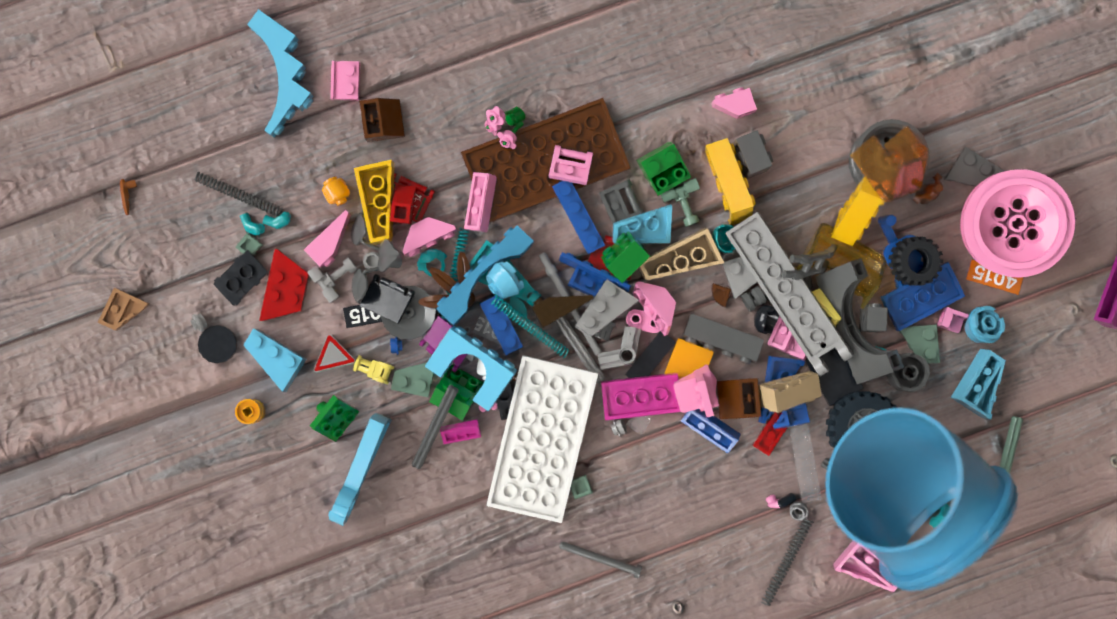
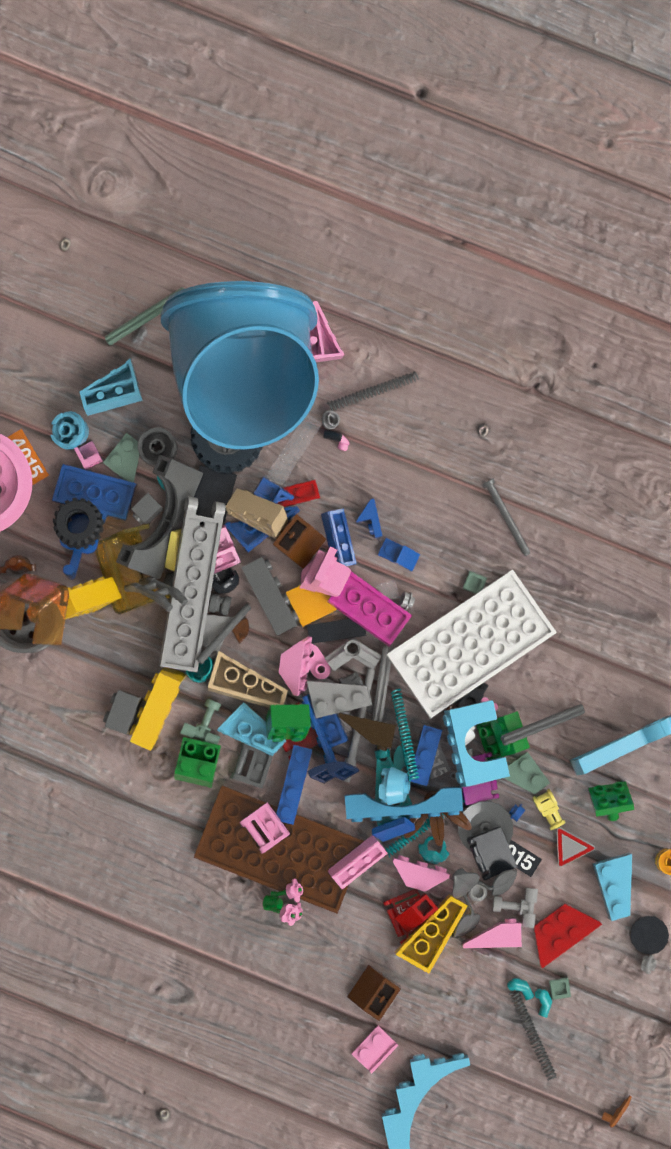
camera: 140 degrees left, 0 degrees up
(240, 278) = (587, 969): black piece -> none
(335, 191) = (457, 969): light orange head -> none
(460, 431) = (526, 704): dark pink plate -> none
(475, 249) = (393, 829): none -> blue tile
(561, 249) = (328, 771): none -> dark blue slope
(655, 456) = (399, 554): none -> blue slope
(705, 467) = (370, 513): none -> blue slope
(731, 279) = (224, 633): none -> dark grey bar
(736, 104) = (98, 760): bright pink slope -> none

